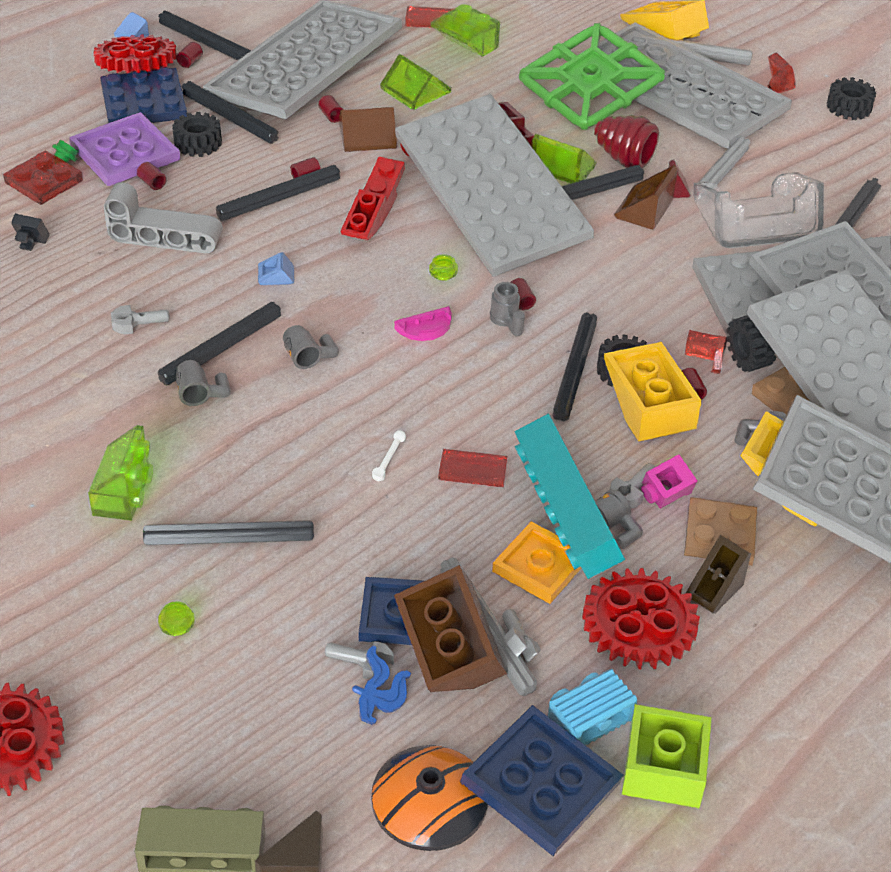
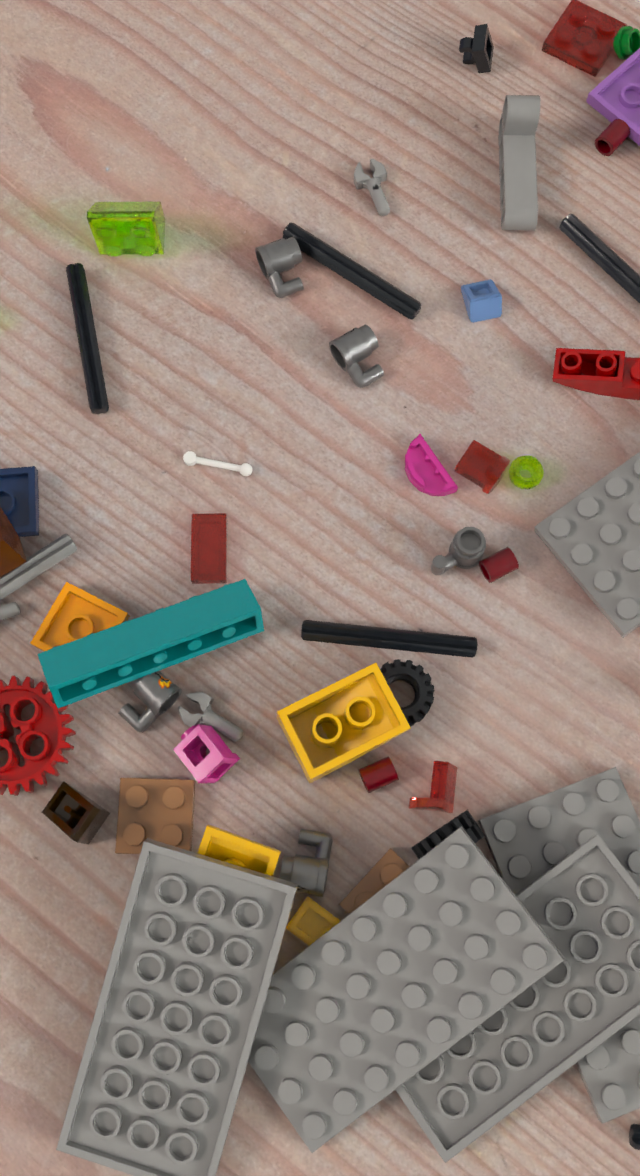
camera: 85 degrees right, 30 degrees up
(433, 290) = (482, 466): none -> clear red tile

